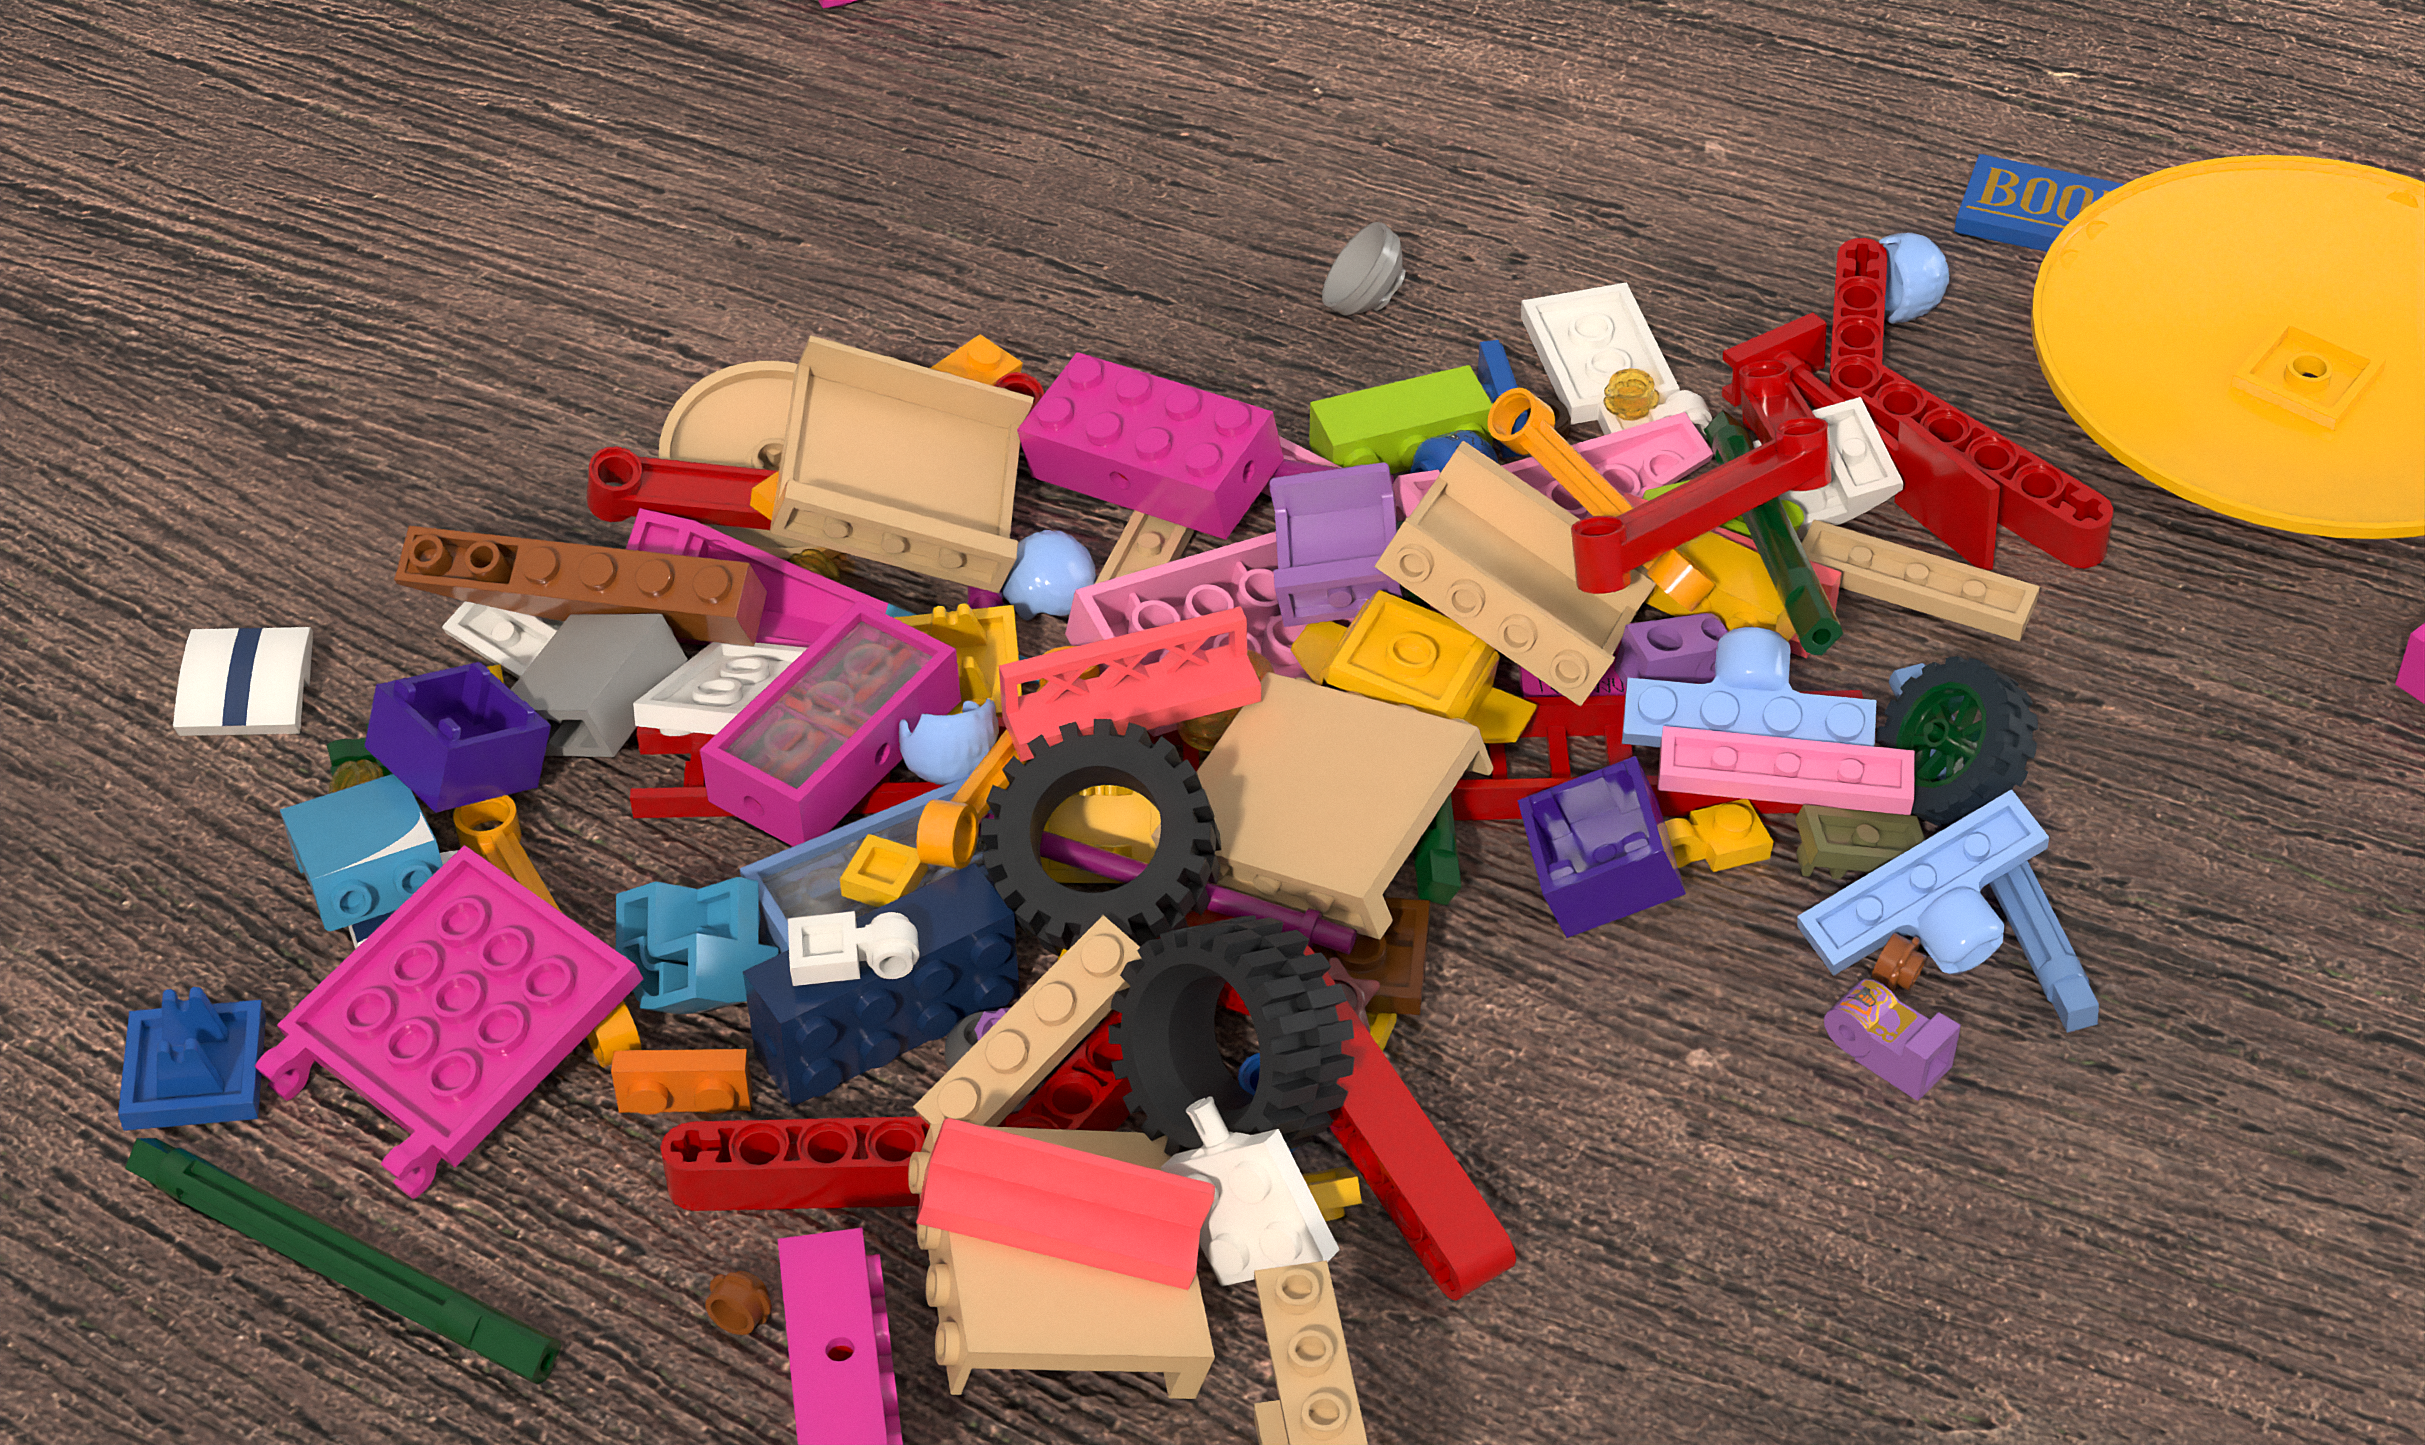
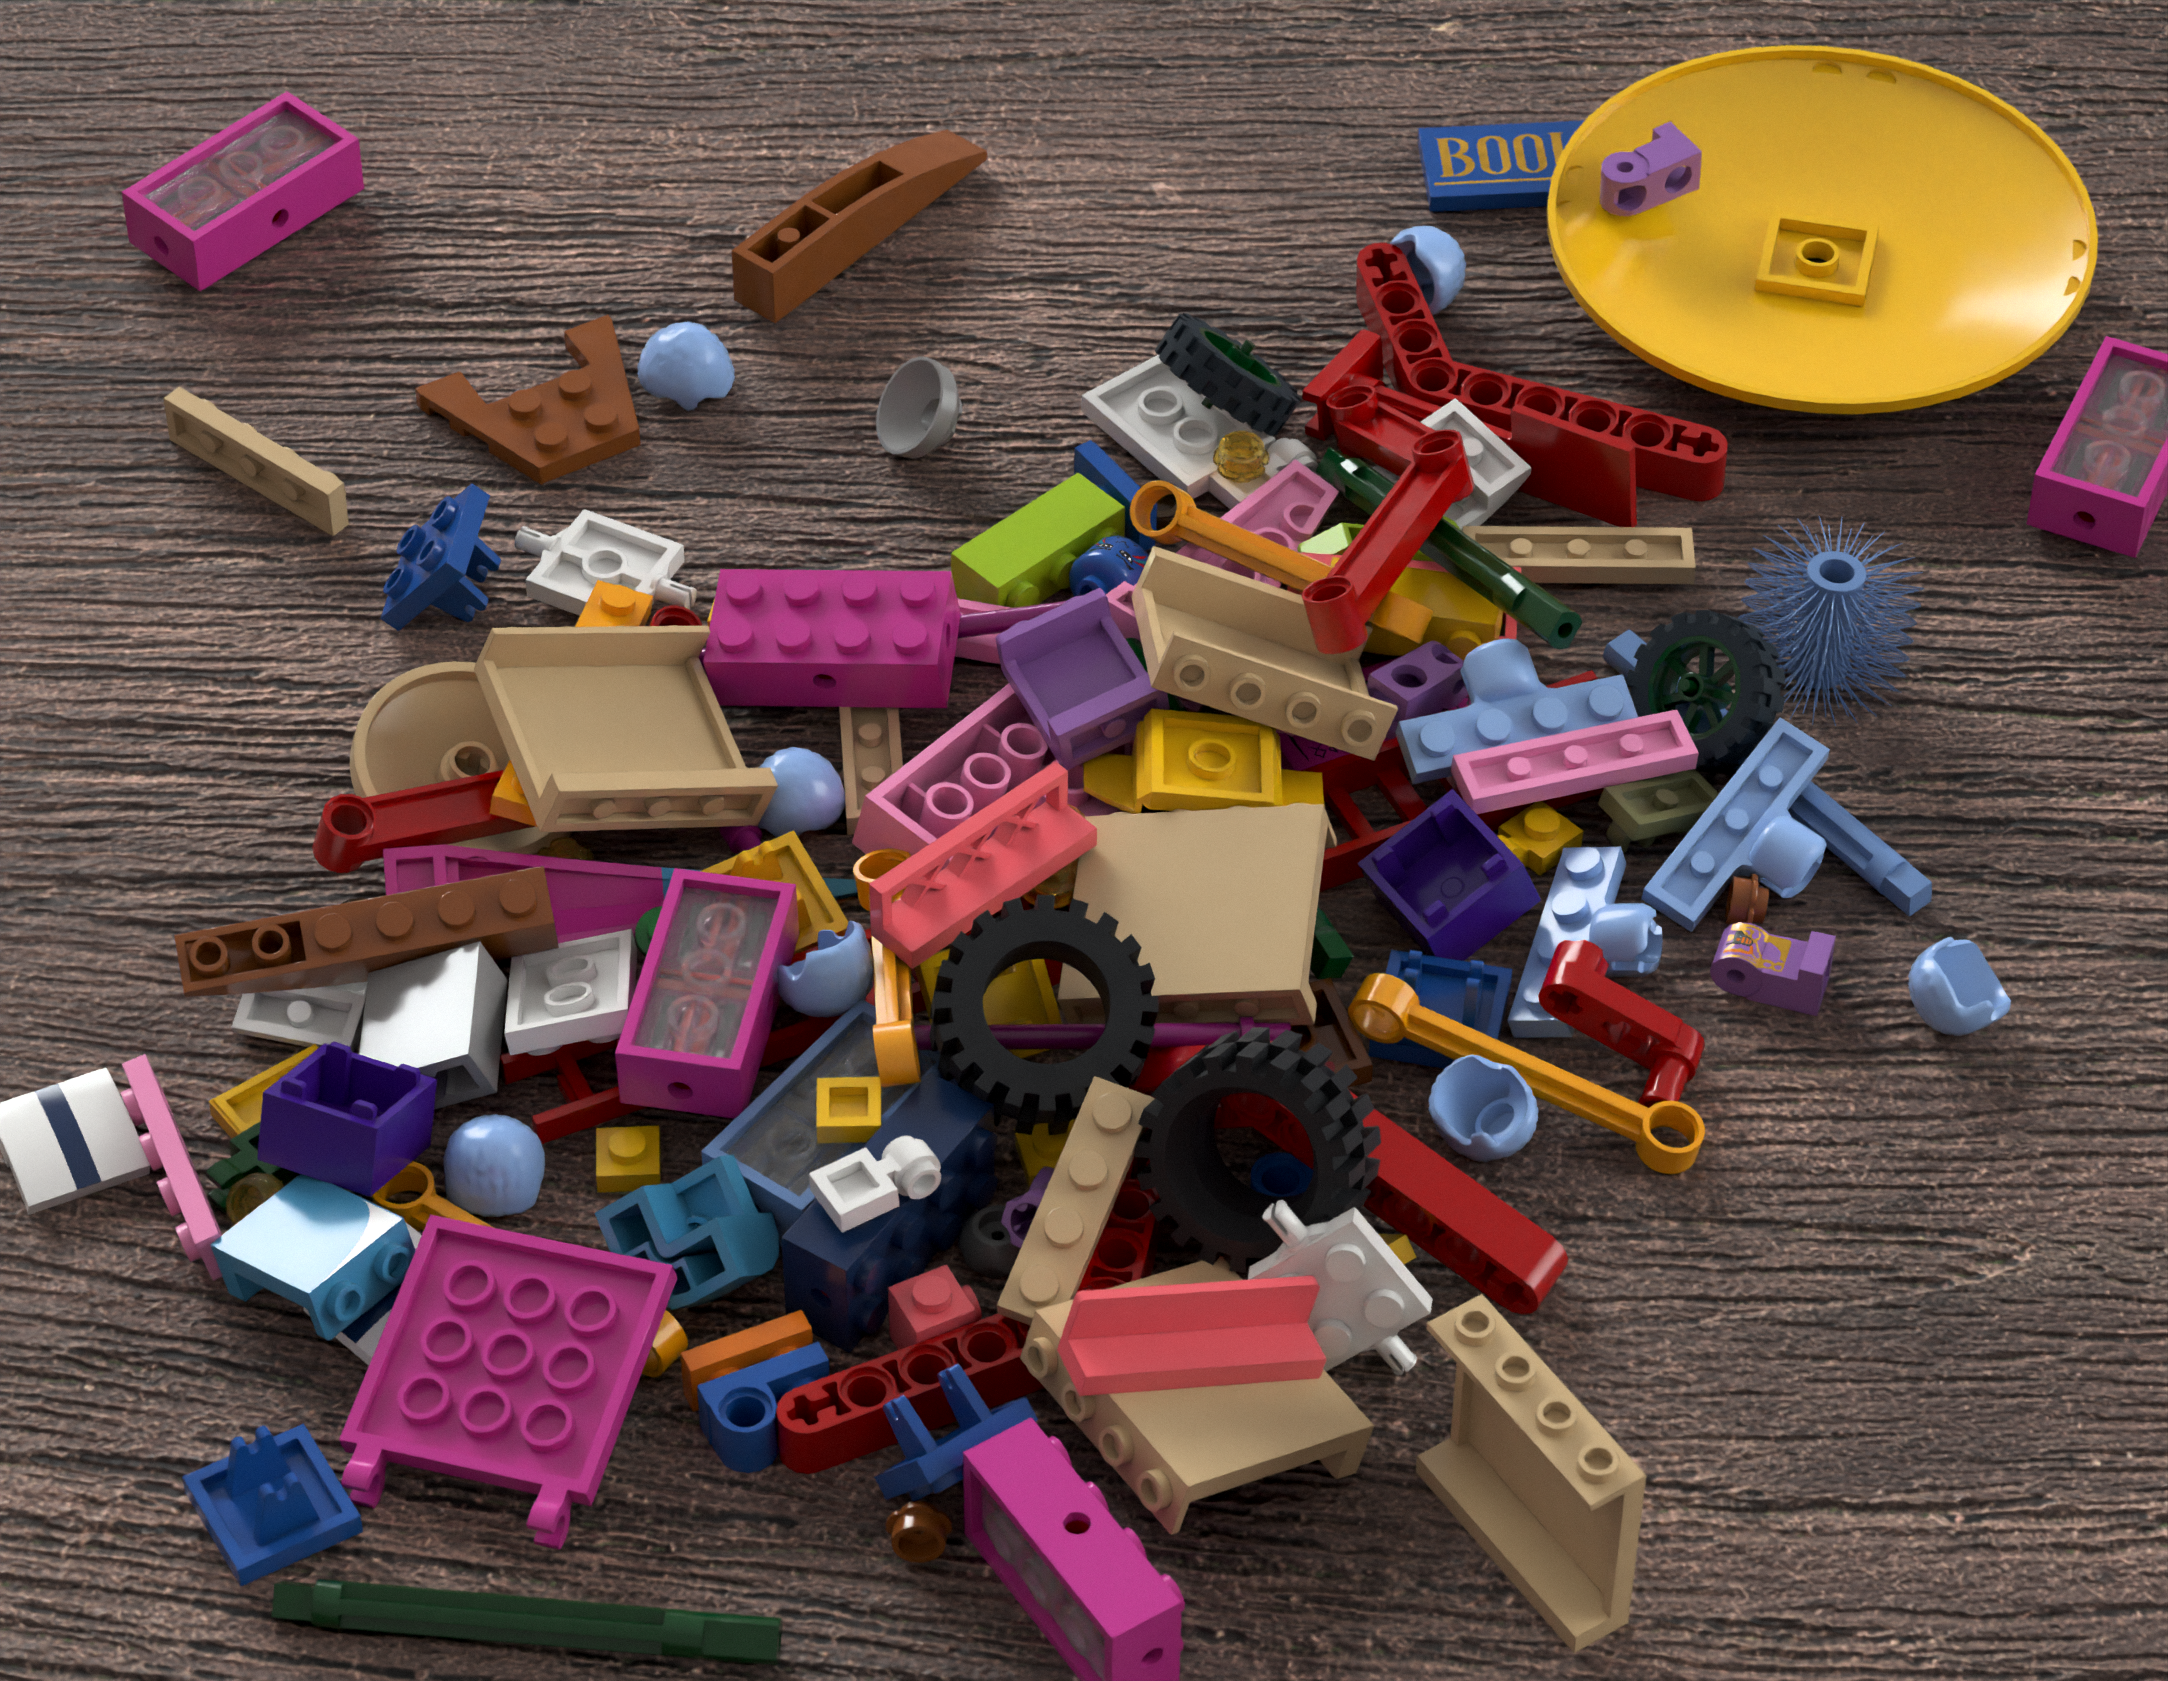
camera: 25 degrees left, 0 degrees up
(313, 722) = (167, 1149): none -> bright pink plate
(577, 823) = (493, 1166): none -> light blue hair
(644, 1115) = (741, 1407): none -> blue plate
(703, 856) = (627, 1158): none -> yellow plate
(761, 1241) = (939, 1463): none -> blue plate
(773, 158) = (256, 461): none -> tan plate
(870, 1086) = (929, 1307): none -> coral brick
(871, 263) = (437, 561): none -> blue plate
(1014, 319) = (602, 551): none -> white plate
(1053, 197) = (554, 424): none -> dark orange wing
(1186, 177) = (685, 365): none -> light blue hair
(1399, 91) = (845, 220): none -> dark orange slope
(1469, 953) = (1390, 1009): none -> light orange piece
(1509, 1078) = (1483, 1108): none -> light blue hair
(1532, 972) = (1454, 988): none -> blue plate
(1657, 316) = (1228, 374): none -> black wheel
(1665, 999) = (1621, 1020): none -> red beam
(1711, 944) = (1584, 909): none -> light blue plate
(2067, 1119) = (1956, 988): none -> light blue hair
(2121, 712) = (1830, 617): none -> medium blue piece
(2166, 245) = (1650, 173): none -> medium lavender leg

